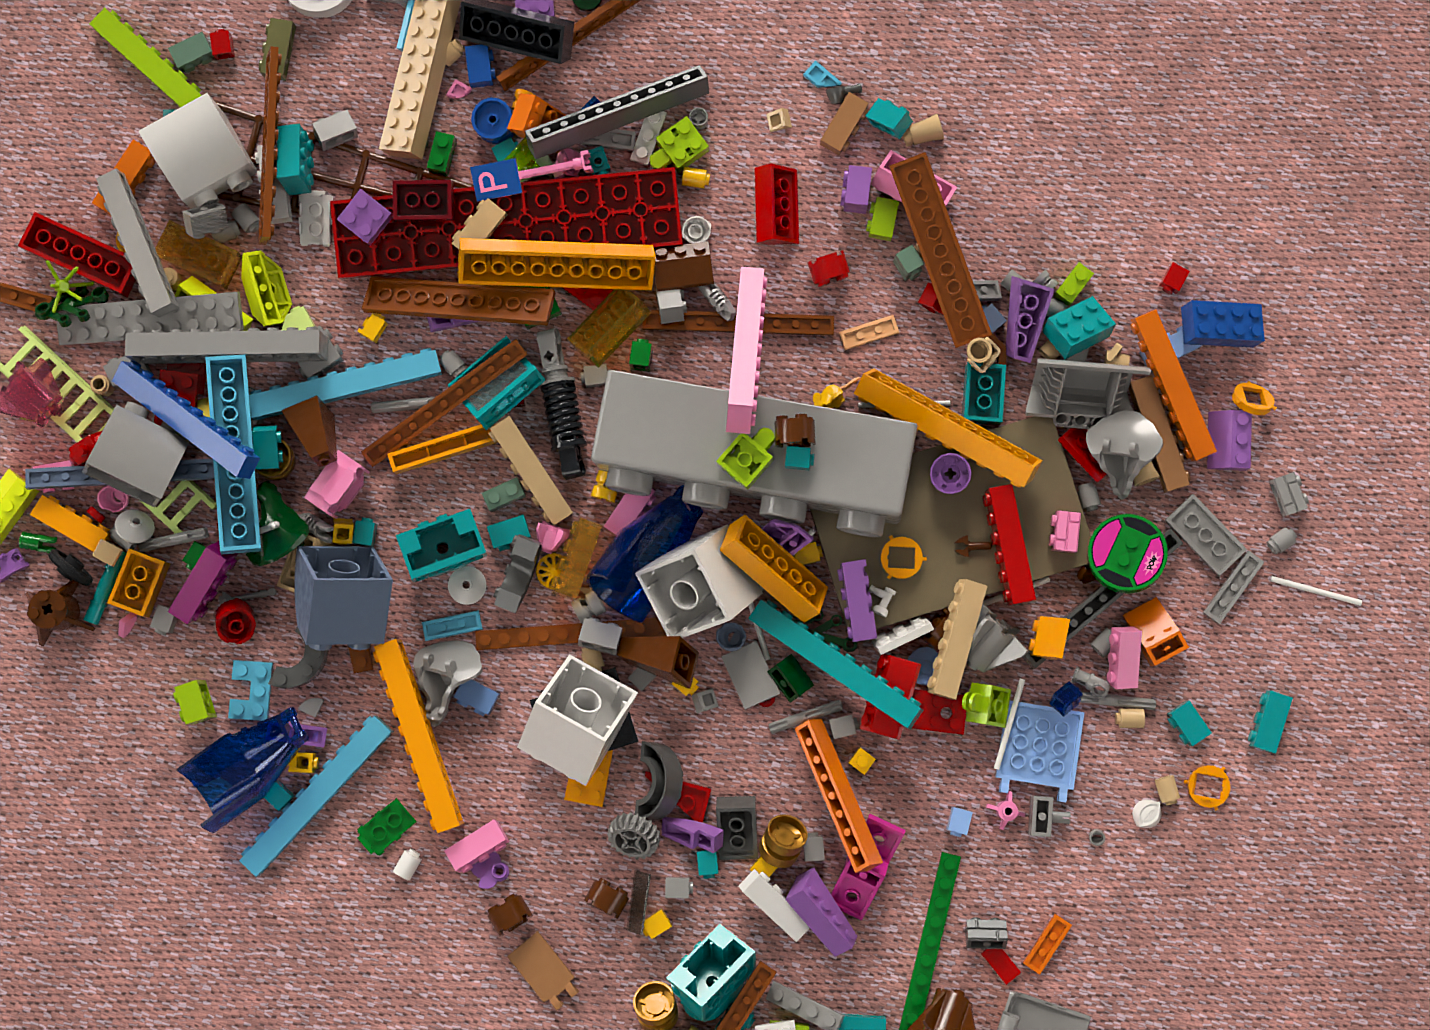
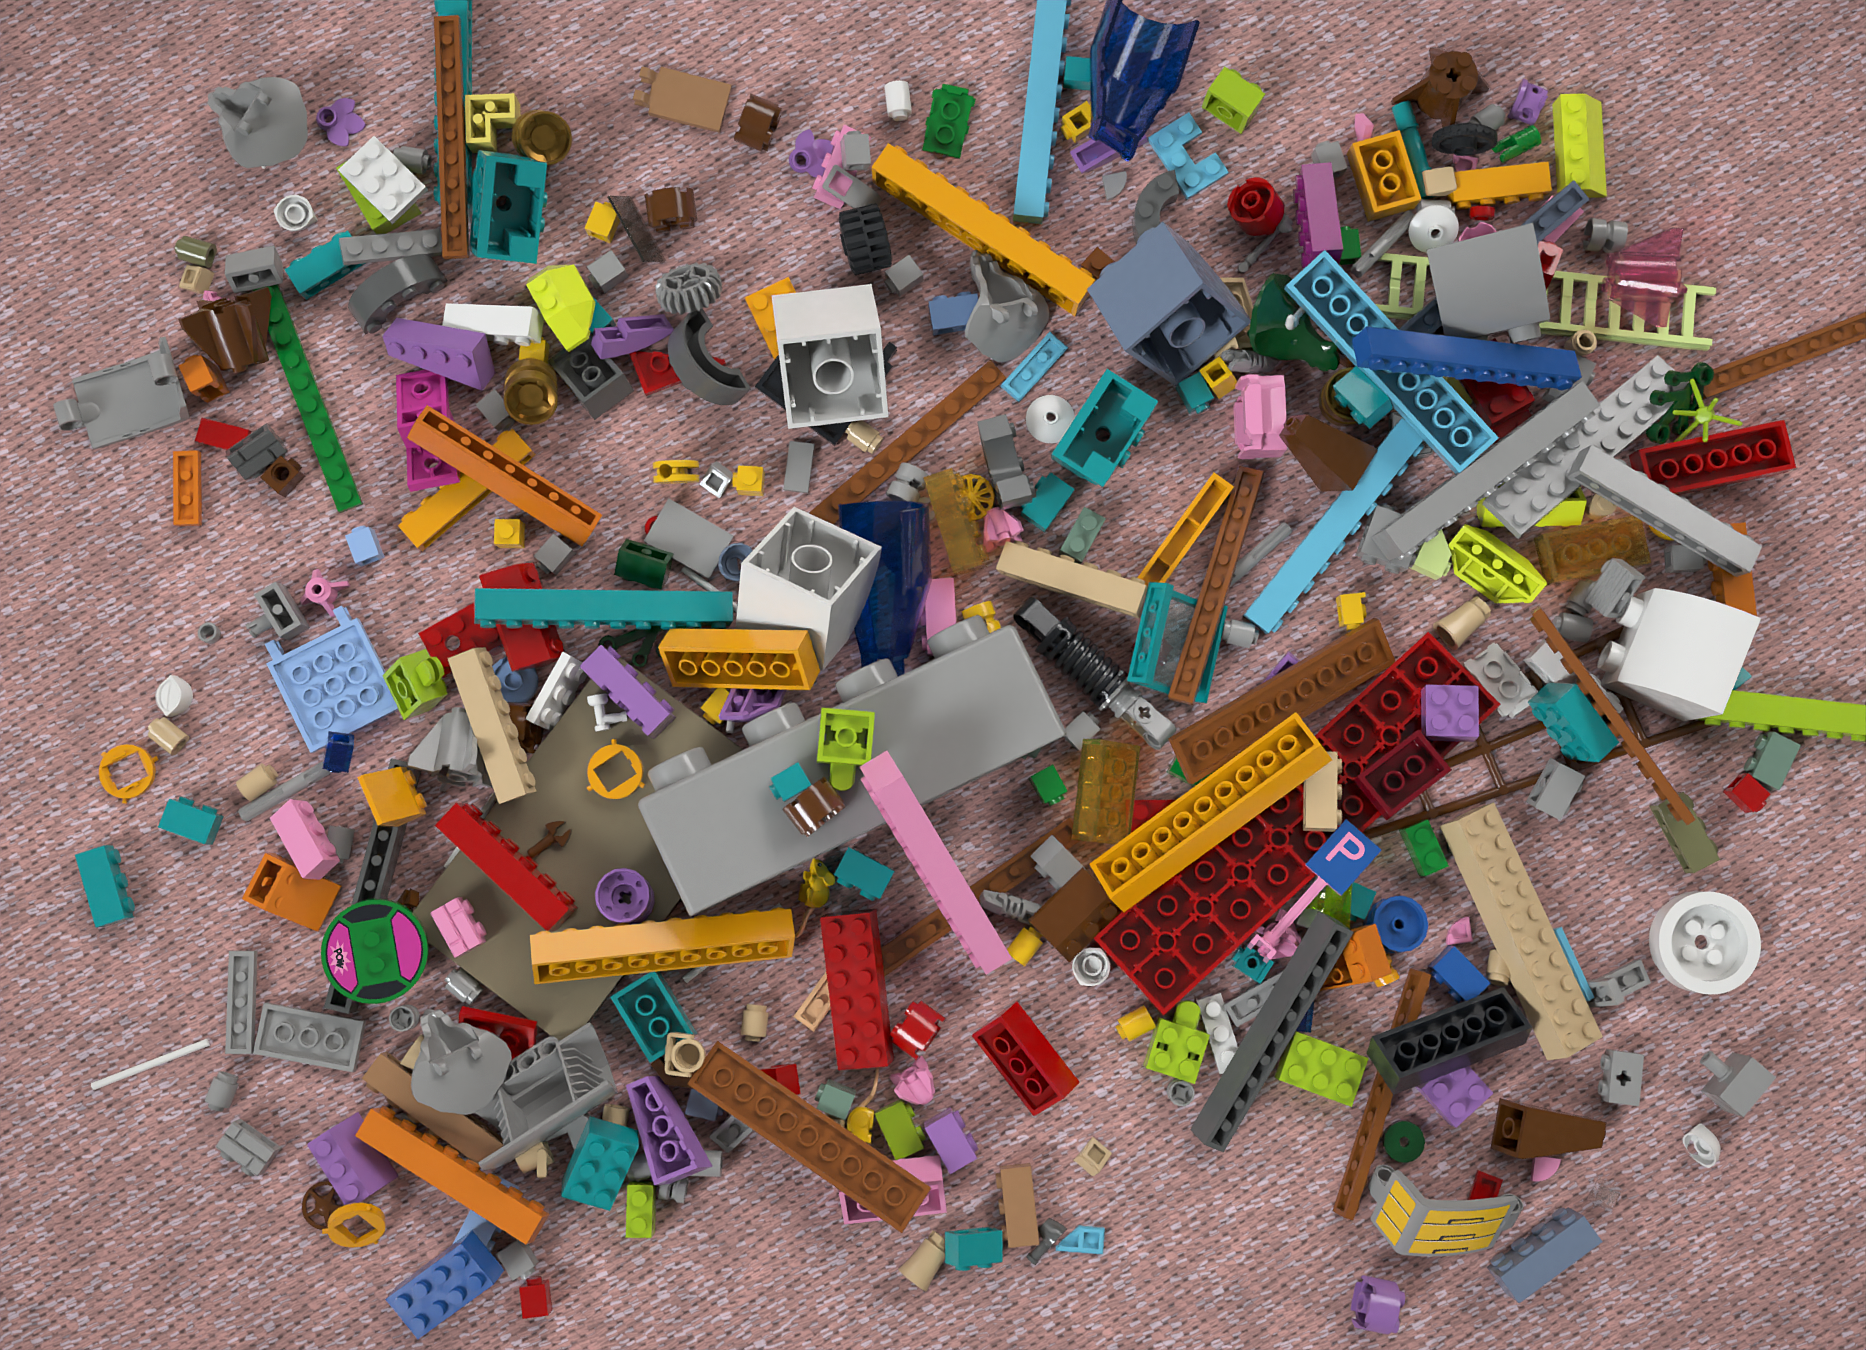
camera: 140 degrees right, 0 degrees up
(30, 441) = (1606, 236): none -> light grey wheel
(44, 571) = (1491, 116): none -> light grey brick
(80, 553) = (1465, 163): none -> bright pink tile
(148, 210) = (1682, 559): none -> light grey brick
(311, 270) = (1462, 622): none -> tan plant
(461, 845) = (855, 151): none -> light grey brick
(480, 816) = (858, 193): none -> light grey piece
(491, 744) = (903, 276): none -> light grey brick
(498, 783) = (865, 239): none -> black wheel
(600, 636) = (872, 462): light grey brick -> none
(603, 70) = (1321, 1068): none -> lime brick
(662, 656) = (787, 487): reddish brown slope -> none
(720, 886) = (564, 303): none -> neon yellow wedge
(727, 271) = (1025, 945): none -> yellow brick
(728, 722) = (675, 471): none -> yellow head
(792, 381) = (865, 873): none -> teal brick
(799, 718) = (601, 537): light grey axle -> none
(818, 977) = (390, 286): none -> dark grey brick
(848, 318) = (857, 989): none -> red brick
(854, 239) = (914, 1083): none -> bright pink brick
(885, 807) = (455, 500): none -> light orange brick
(899, 241) = (861, 1118): none -> yellow animal
(925, 345) = (754, 1022): none -> tan brick
(986, 1007) = (203, 378): none -> orange brick
(988, 907) = (273, 475): none -> reddish brown brick
(1009, 724) = (380, 682): white axle -> none
(1090, 681) = (323, 788): light grey connector -> none
(1138, 503) = (400, 1020): none -> light grey wheel
(1169, 308) = (518, 1260): none -> light grey brick
(1265, 426) = (324, 1205): none -> reddish brown wheel

